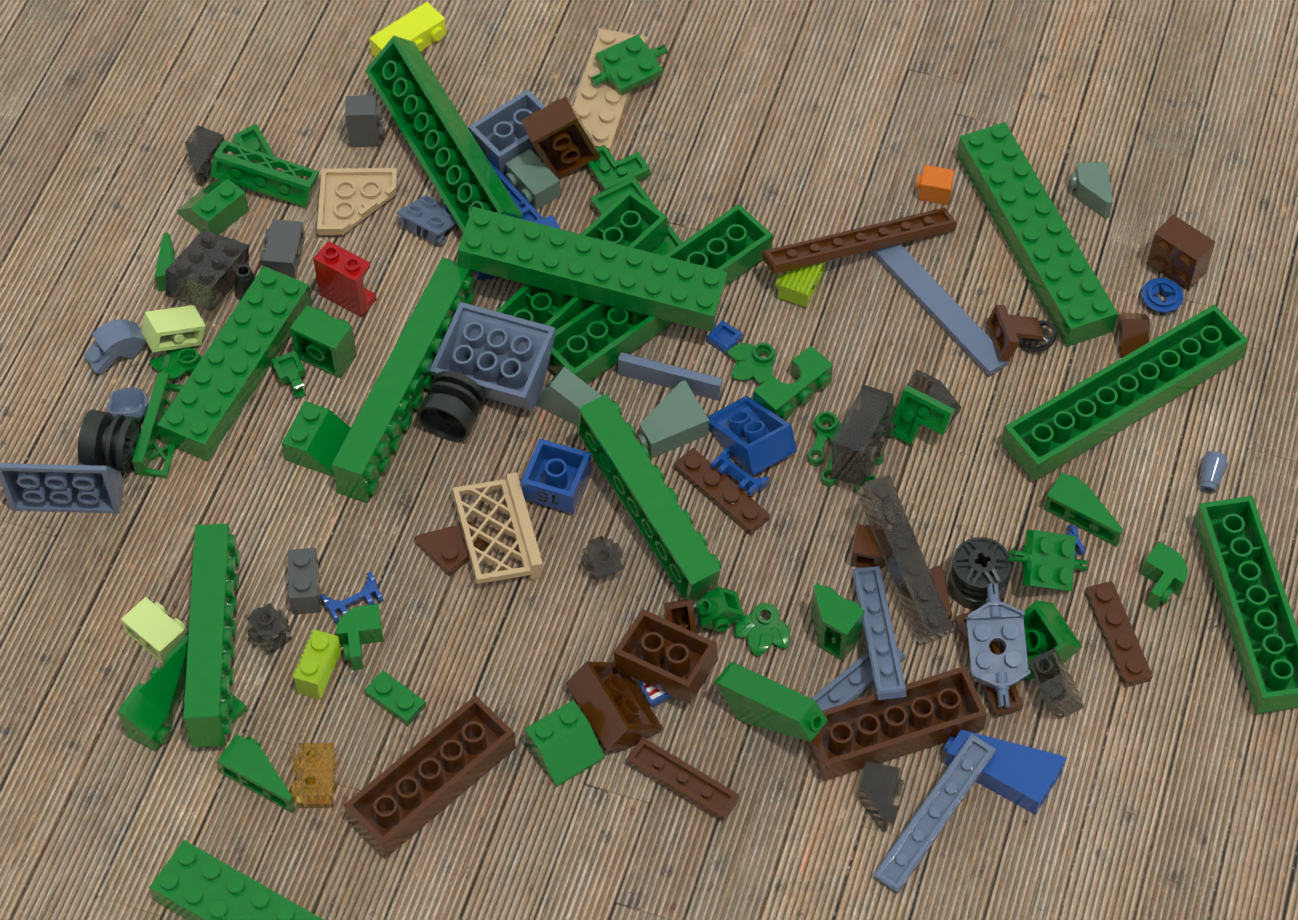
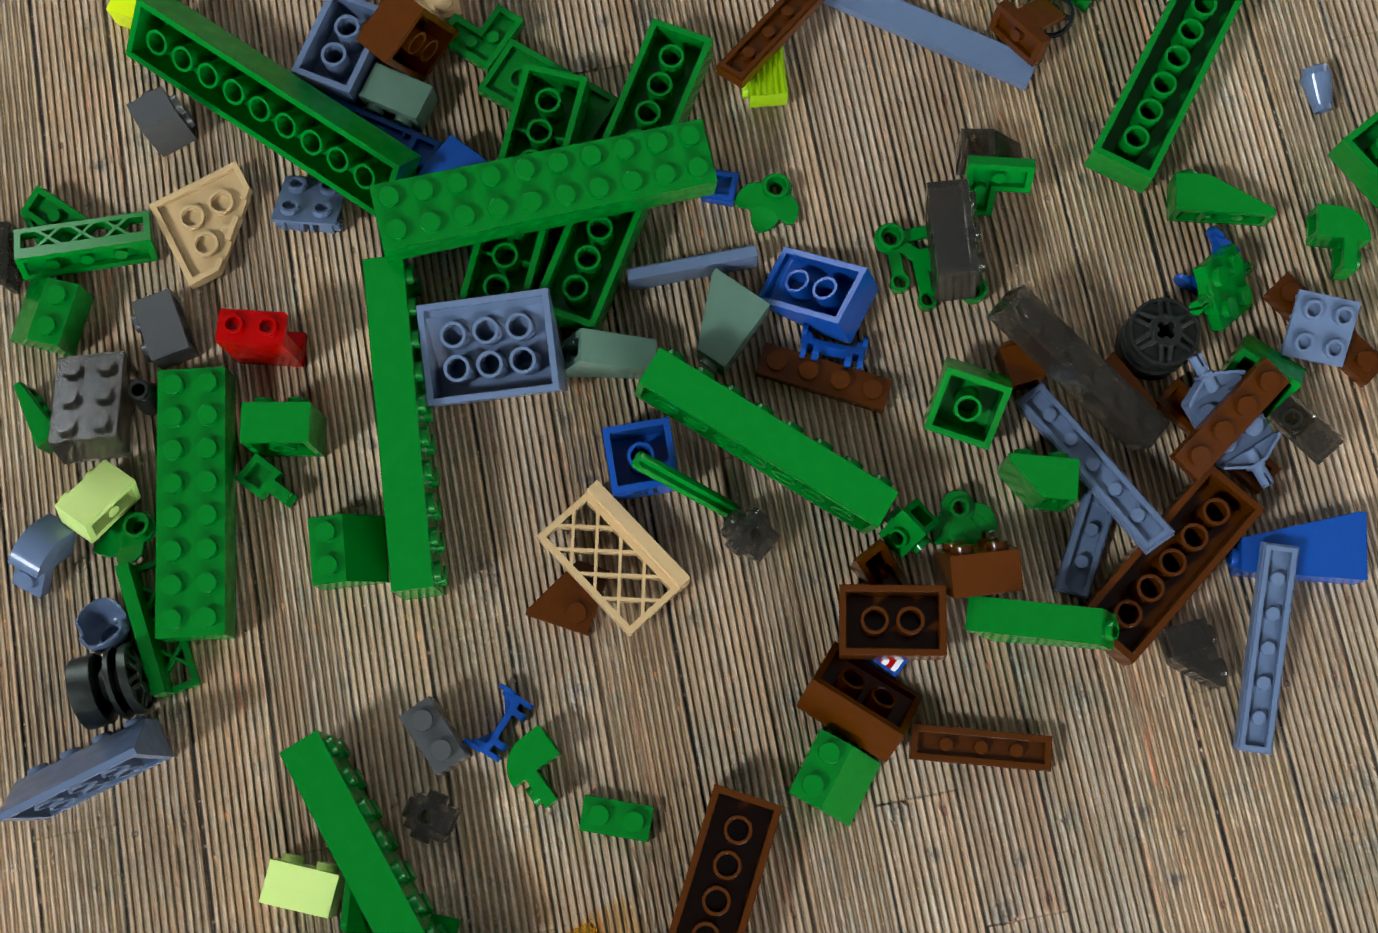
camera: 25 degrees left, 20 degrees up
(316, 664) = (510, 830): lime brick -> none
(451, 406) = (476, 435): pearl dark grey wheel -> none
(573, 497) = (683, 484): none -> green axle
(750, 650) = (978, 568): none -> reddish brown brick
(809, 370) = (839, 184): green arch -> none
(811, 546) = (967, 403): none -> green brick
(995, 640) = (1229, 419): none -> reddish brown plate
(1107, 622) = (1320, 328): none -> sand blue hinge

